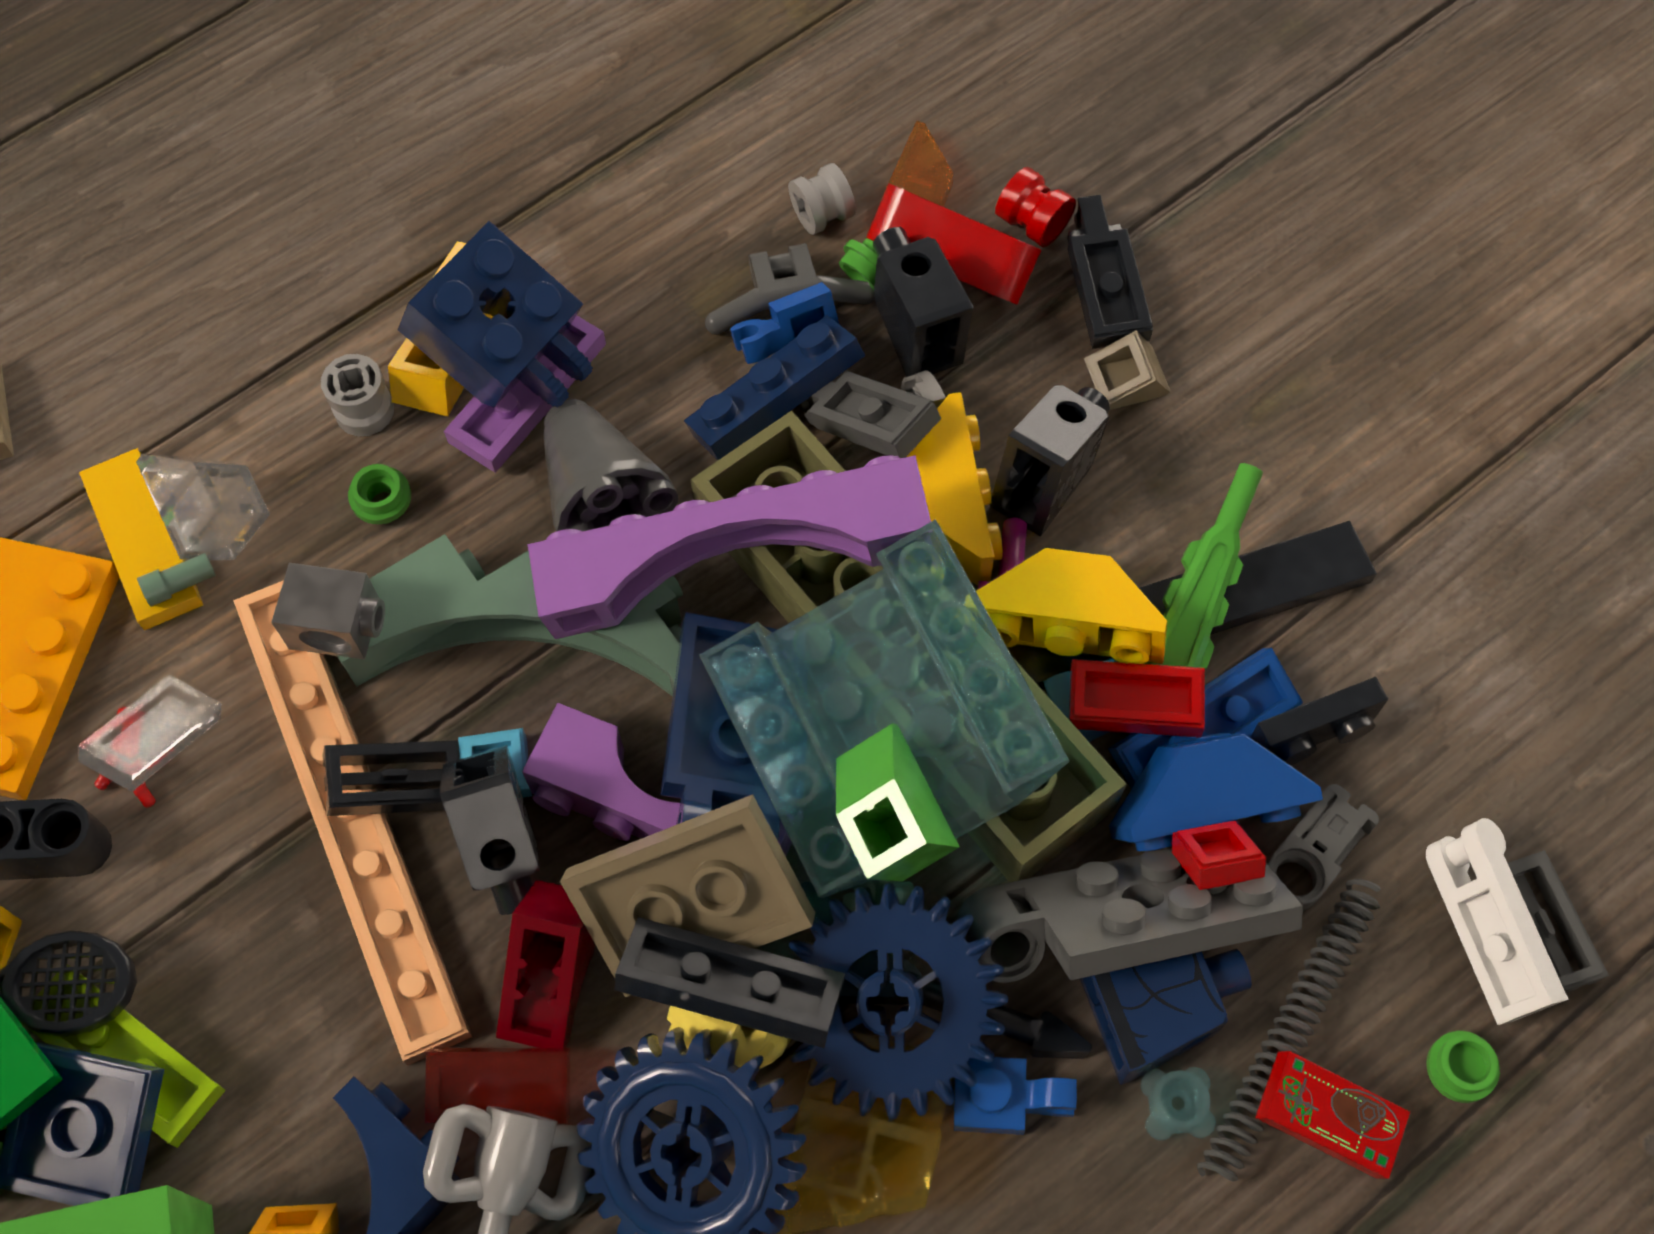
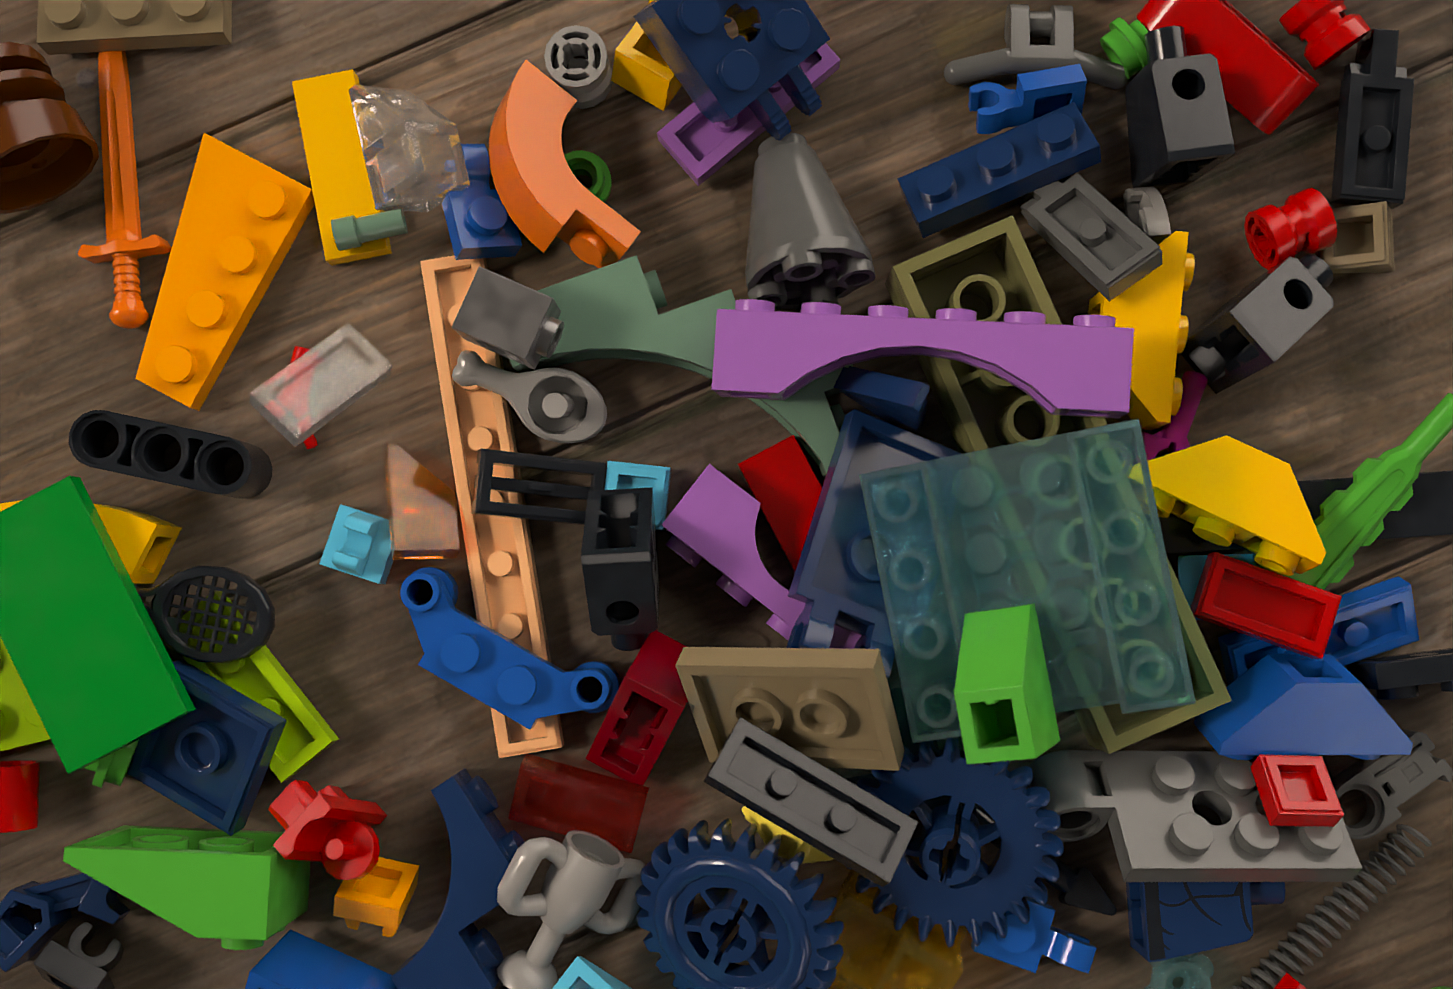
camera: 20 degrees right, 20 degrees up
(218, 884) = (359, 545): none -> medium azure tile
(225, 1167) = (328, 829): none -> red hips
(272, 831) = (419, 510): none -> clear orange tile
(282, 538) = (476, 215): none -> blue plate
(338, 497) = (537, 181): none -> orange arch
(380, 961) = (493, 665): none -> blue plate
(385, 693) = (547, 400): none -> light grey piece
(642, 720) = (787, 493): none -> red tile
(716, 591) = (889, 397): none -> dark blue tile
(1065, 364) = (1283, 231): none -> red wheel

